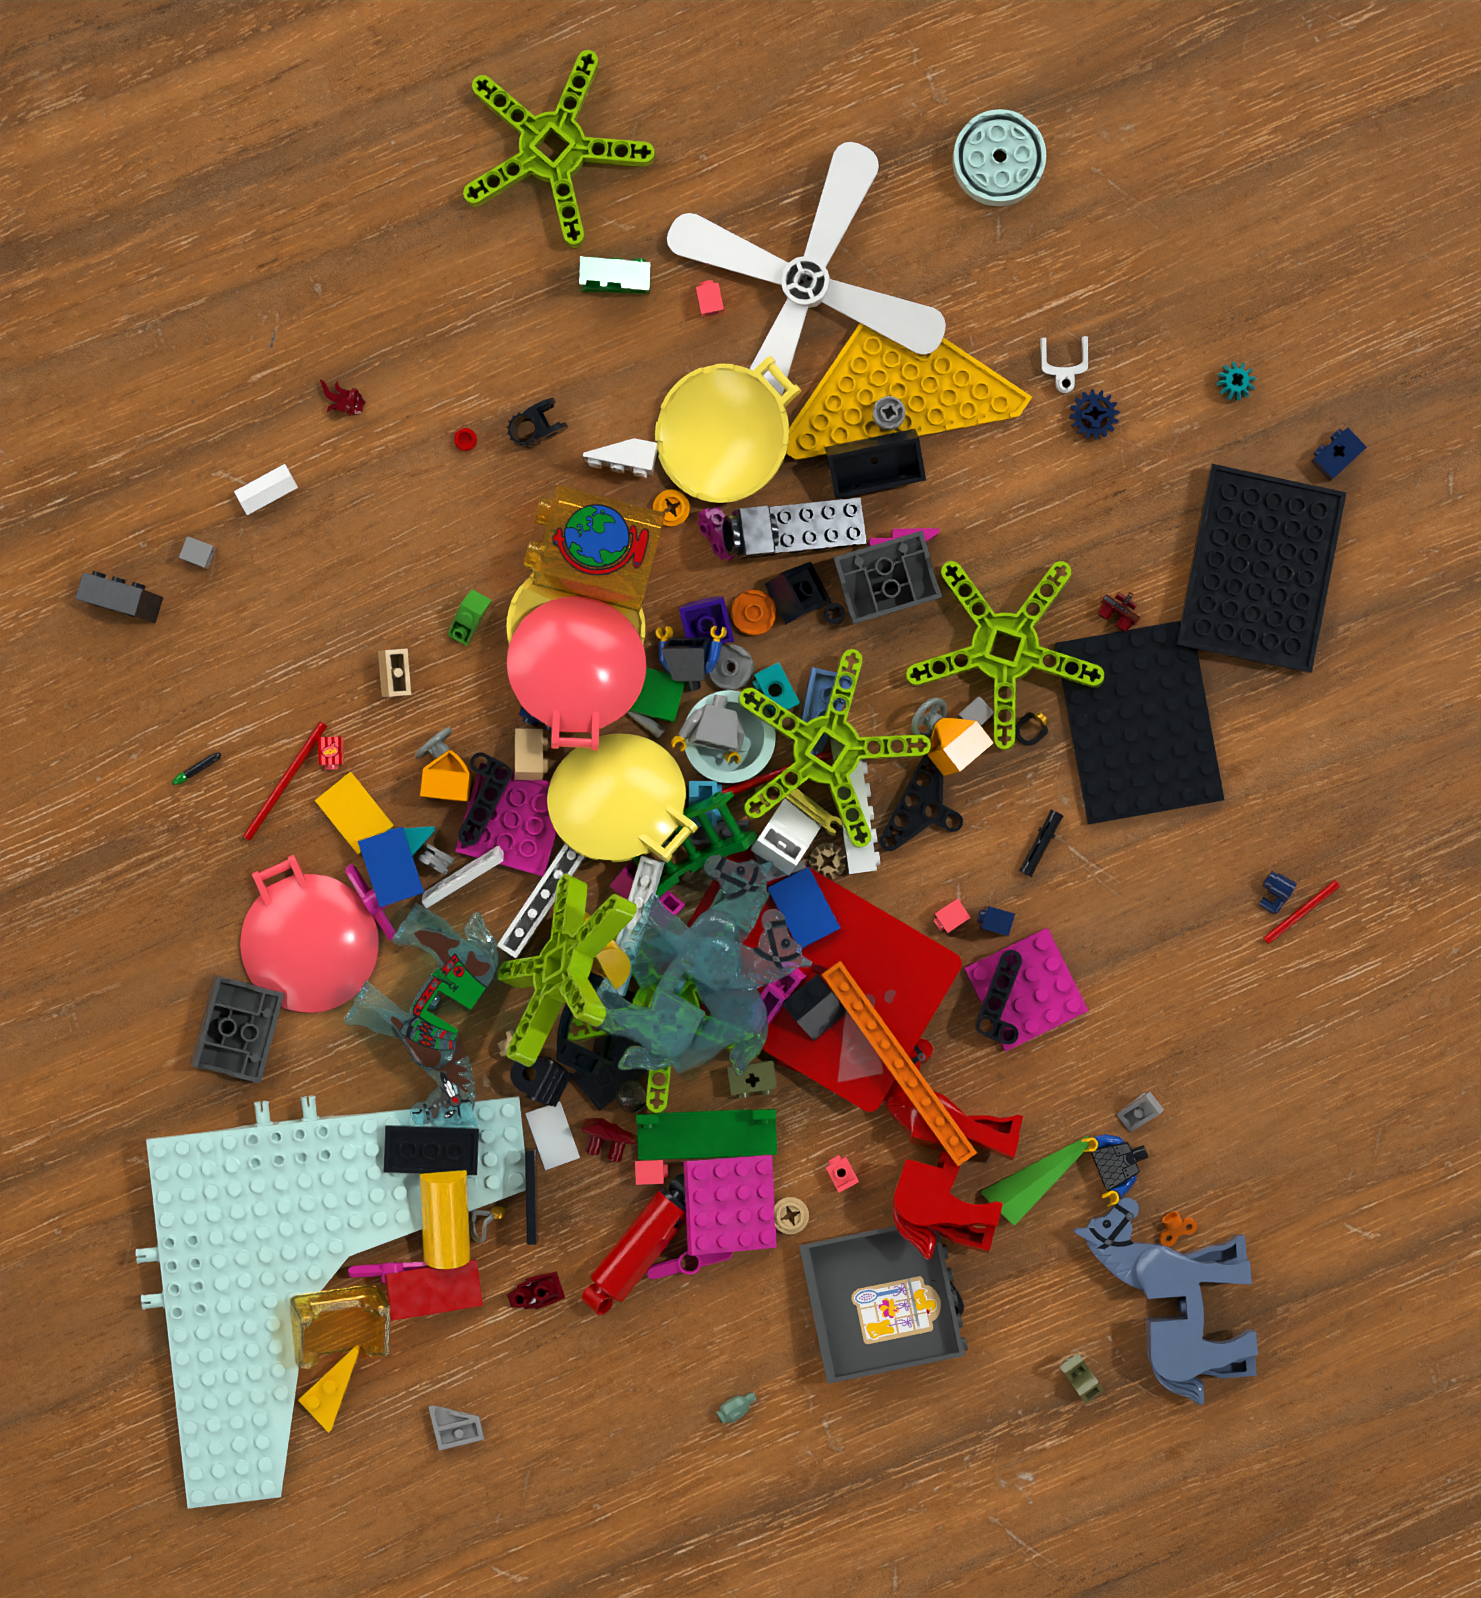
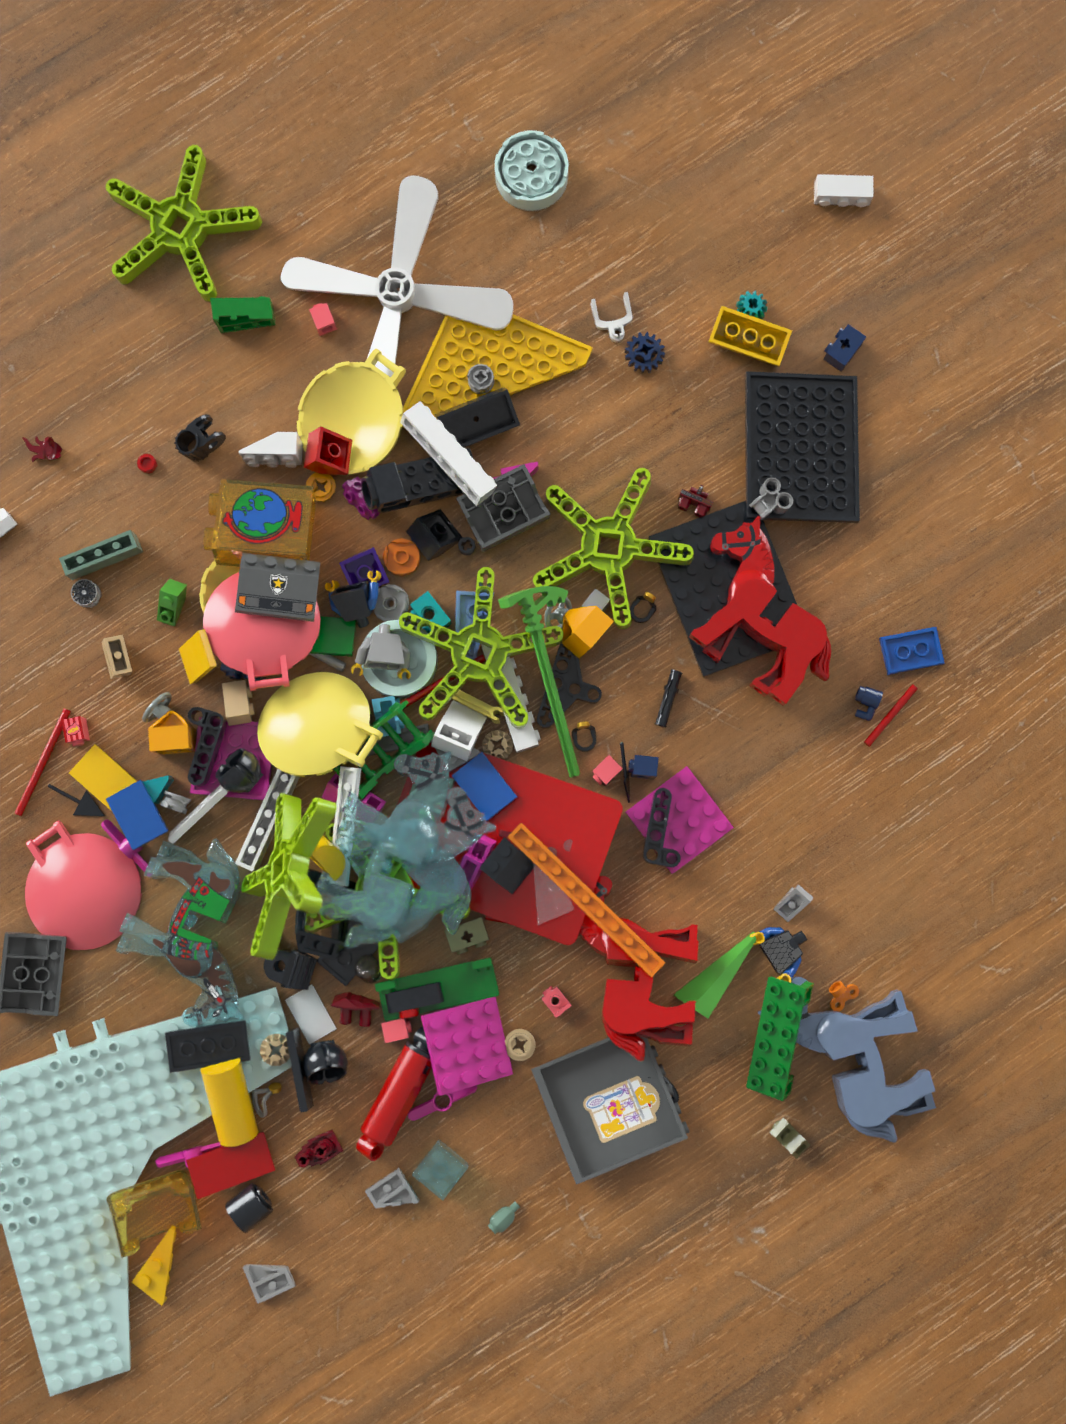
camera: 10 degrees left, 5 degrees down
(328, 843) = (86, 805): none -> black piece
(368, 587) = (86, 593): none -> light grey wheel
(395, 545) = (101, 555): none -> sand green brick
(448, 1341) = (249, 1207): none -> black piece
(492, 692) = (197, 656): none -> yellow tile
(496, 1168) = (265, 1050): none -> tan gear
(520, 839) = (239, 772): none -> black piece
(562, 1194) = (324, 1062): none -> black piece
(604, 630) = (277, 587): none -> dark grey piece
(613, 1353) = (392, 1191): none -> light grey wing
(669, 1155) = (409, 1013): none -> red tile
(673, 1339) = (440, 1169): none -> clear light blue brick
(678, 1138) = (414, 997): none -> black beam
(688, 471) = (327, 452): none -> red slope
(834, 504) = (448, 453): none -> white brick
(898, 711) = (550, 596): none -> bright green piece
(921, 864) = (584, 725): none -> black piece
(973, 924) = (625, 773): none -> black piece
(1089, 1262) = (777, 1037): none -> green bracket
(1205, 799) = (796, 636): none -> red animal
(1206, 631) = (769, 501): none -> light grey piece
(1225, 420) = (750, 336): none -> yellow brick
(1343, 839) = (911, 650): none -> blue tile
(1378, 254) = (843, 190): none -> white brick

